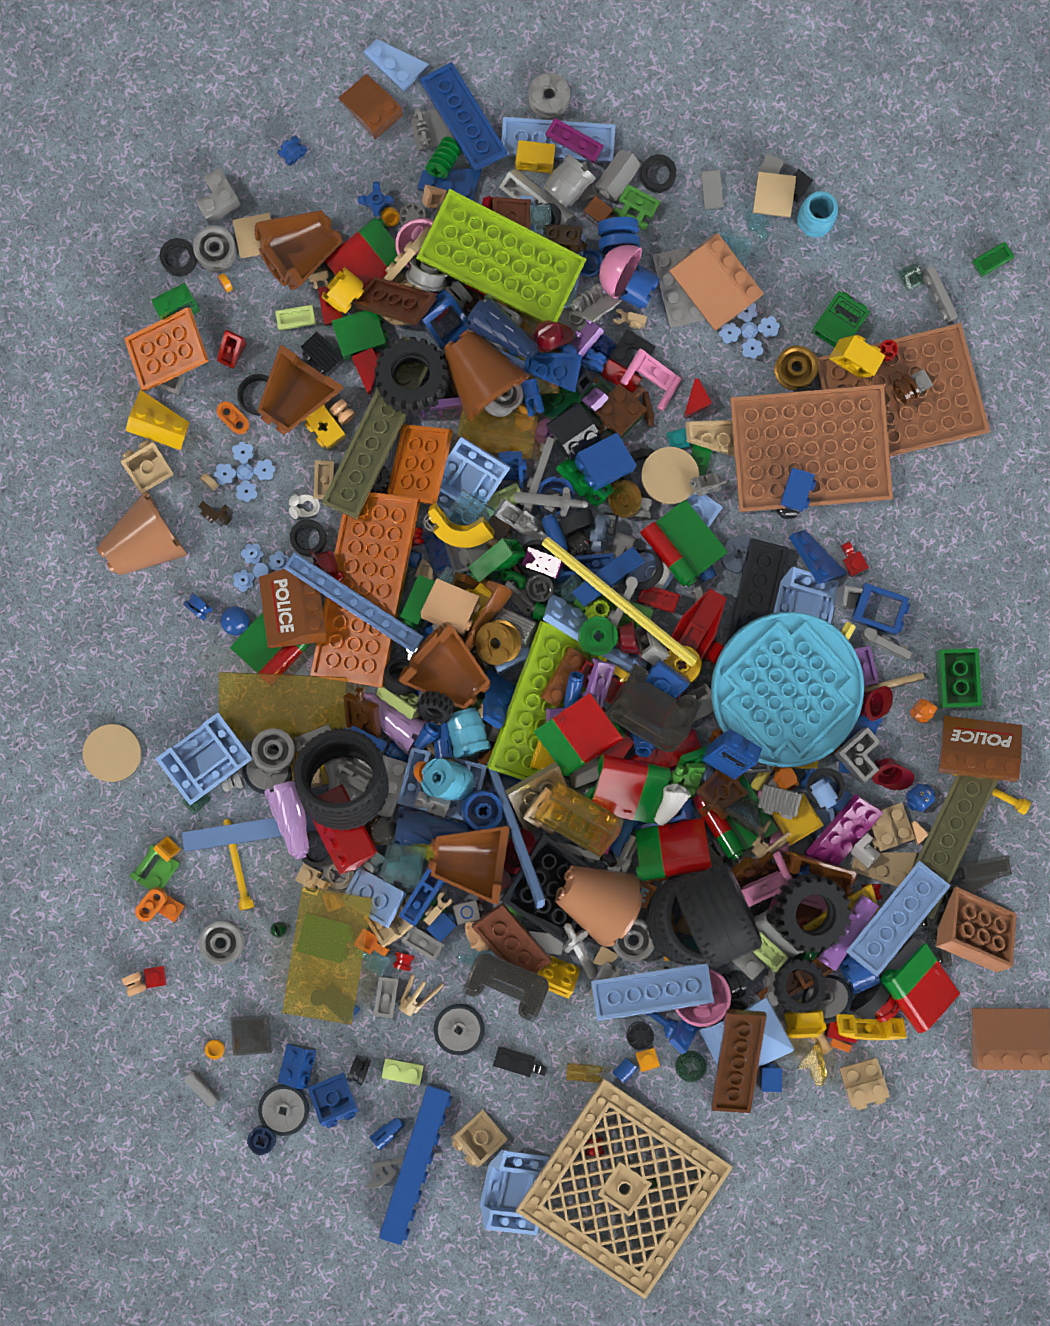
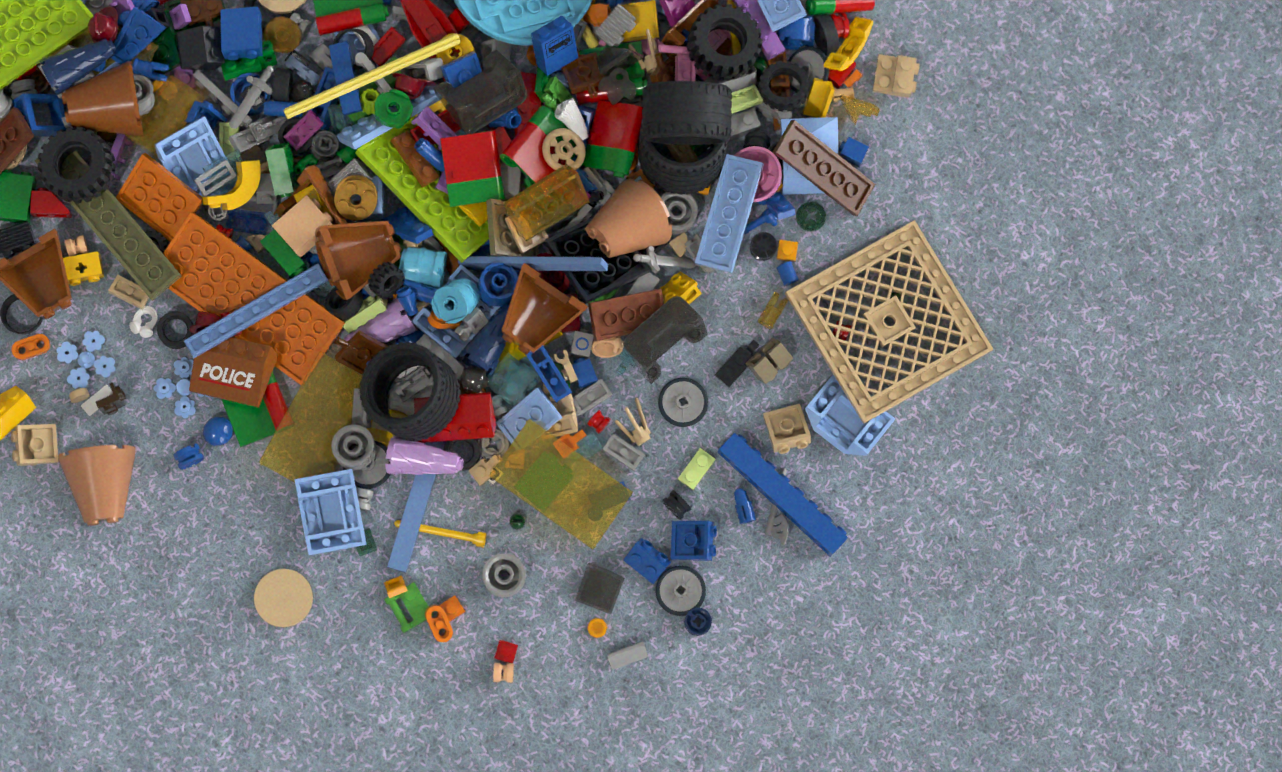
camera: 70 degrees left, 5 degrees down
(213, 499) = (90, 405): none -> white sticker
(461, 498) = (201, 186): none -> light grey tile
(540, 1100) = (774, 353): none -> dark tan piece
(639, 794) = (550, 141): none -> tan plate
(719, 831) = (617, 88): none -> clear smoke plate

